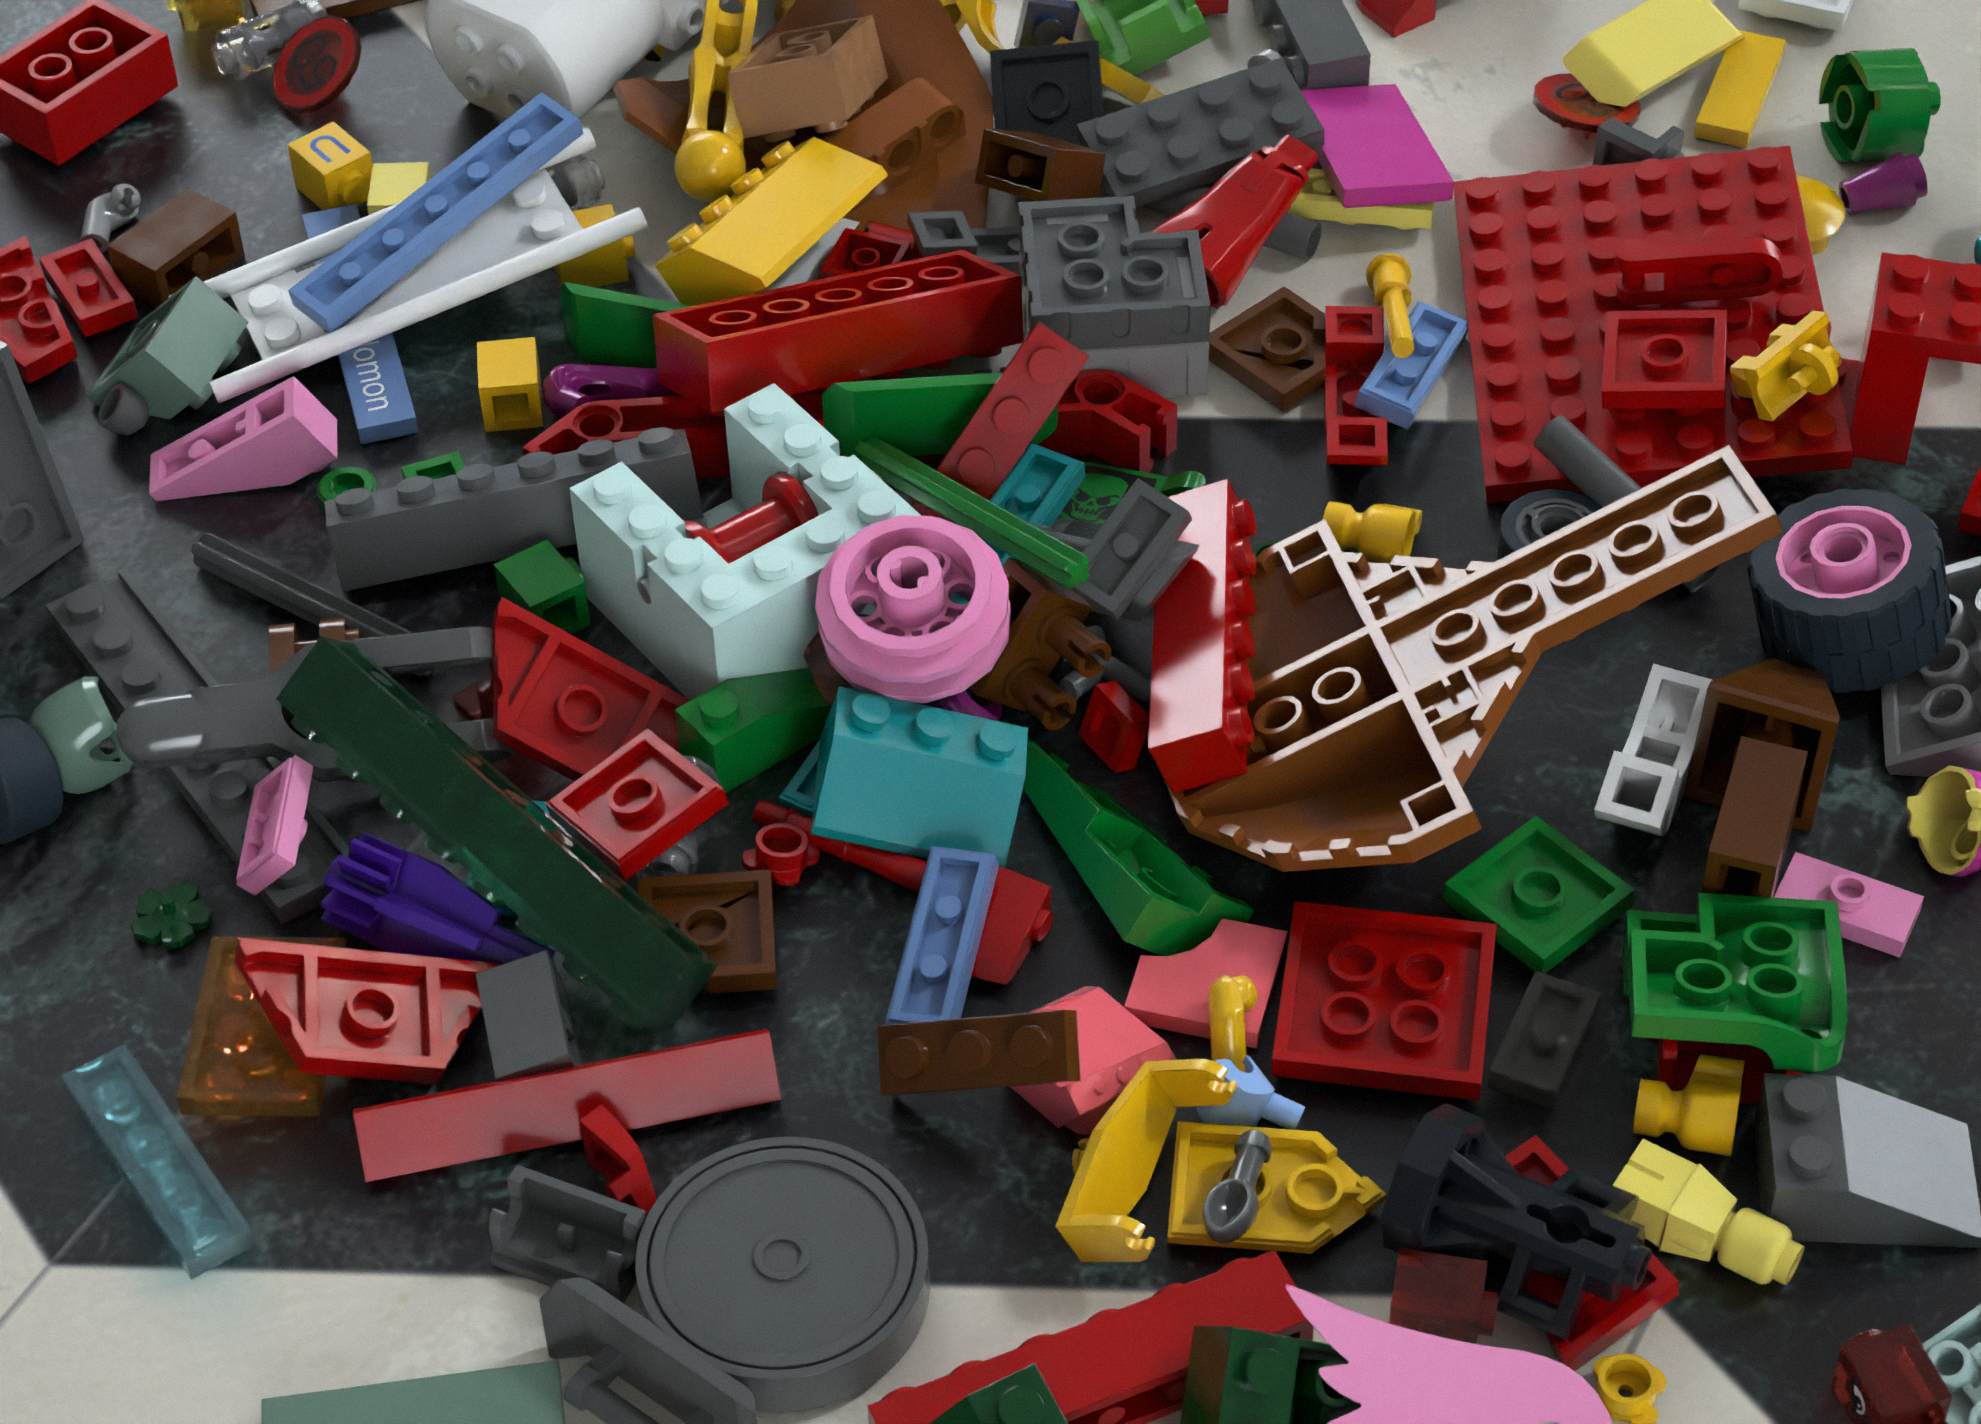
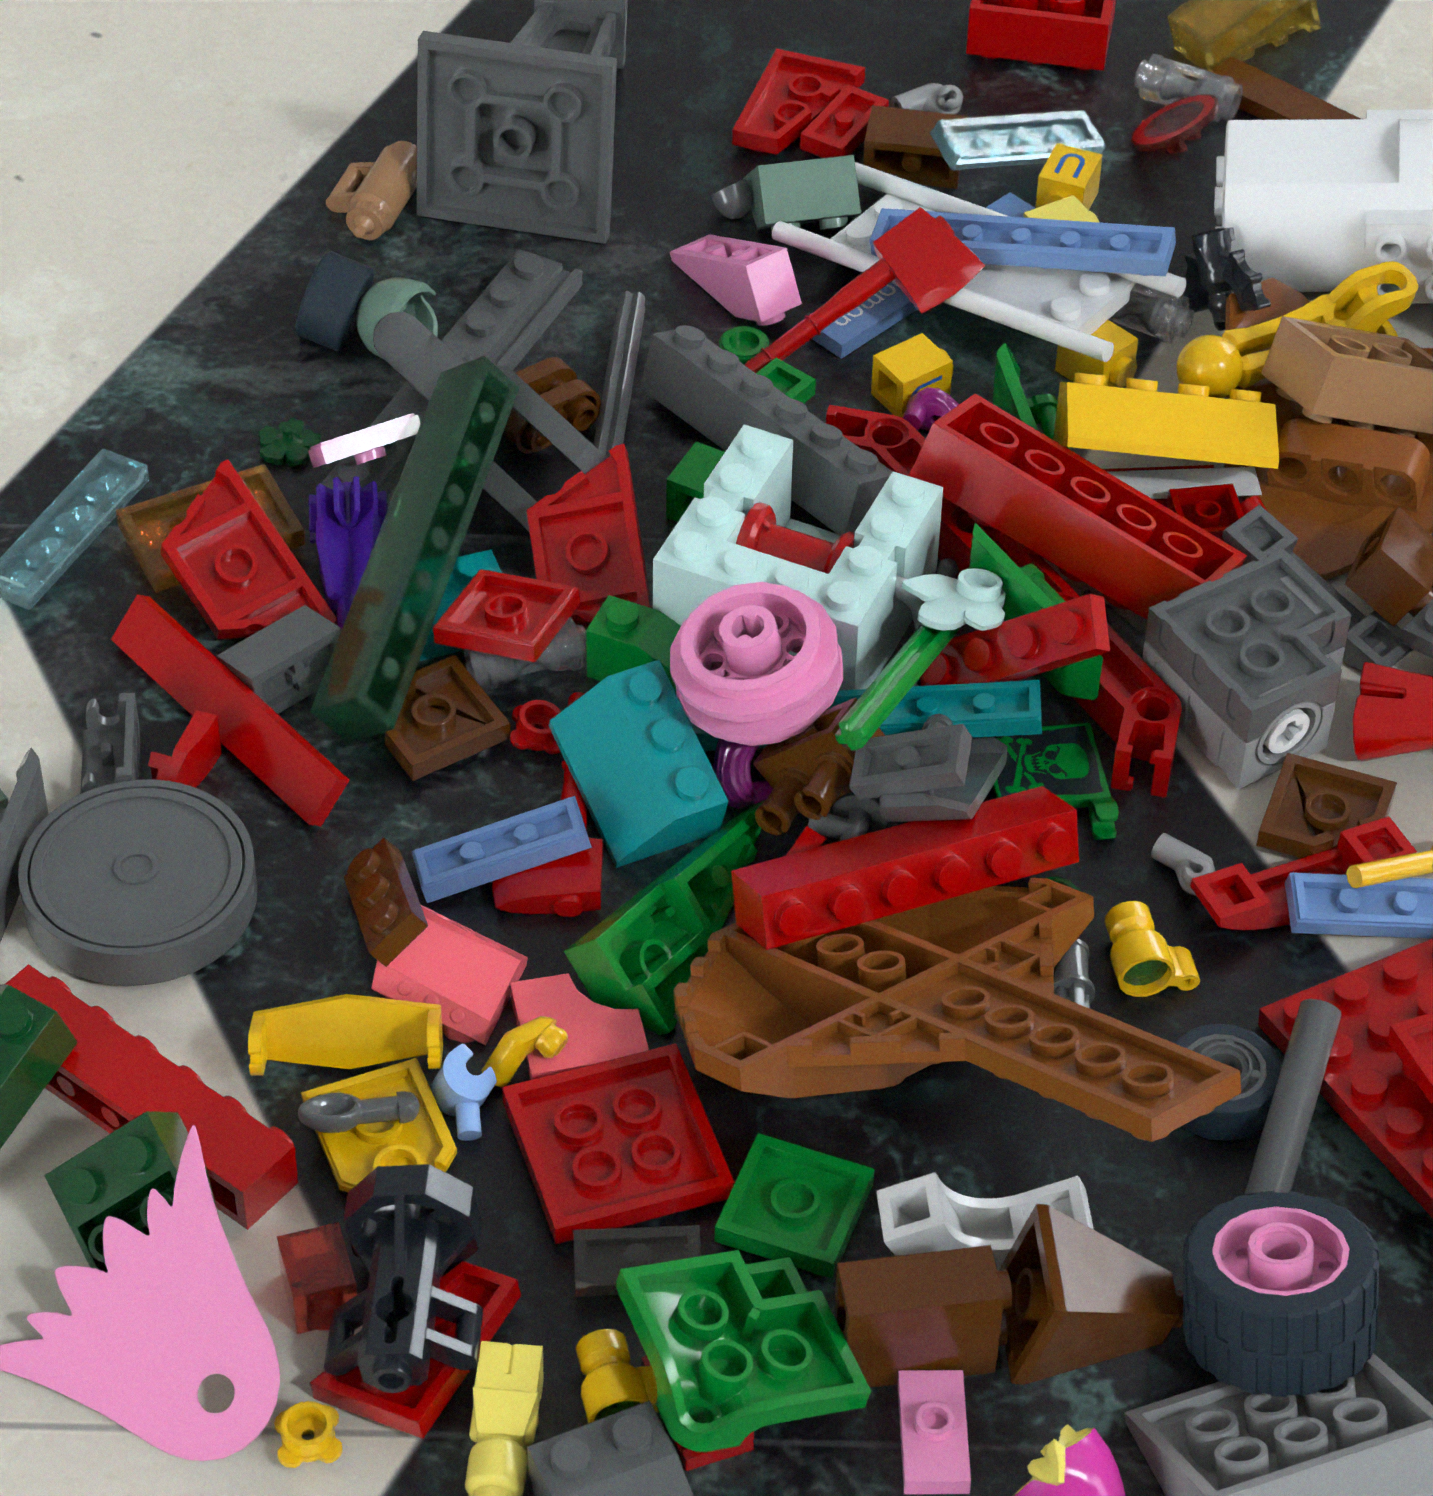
camera: 60 degrees right, 0 degrees up
(254, 171) = (1013, 138): none -> clear light blue plate
(394, 290) = (916, 254): none -> red piece
(593, 99) = (1217, 273): none -> black animal
(915, 441) = (952, 602): none -> light aqua plate
(1287, 460) = (1183, 859): none -> light grey arm

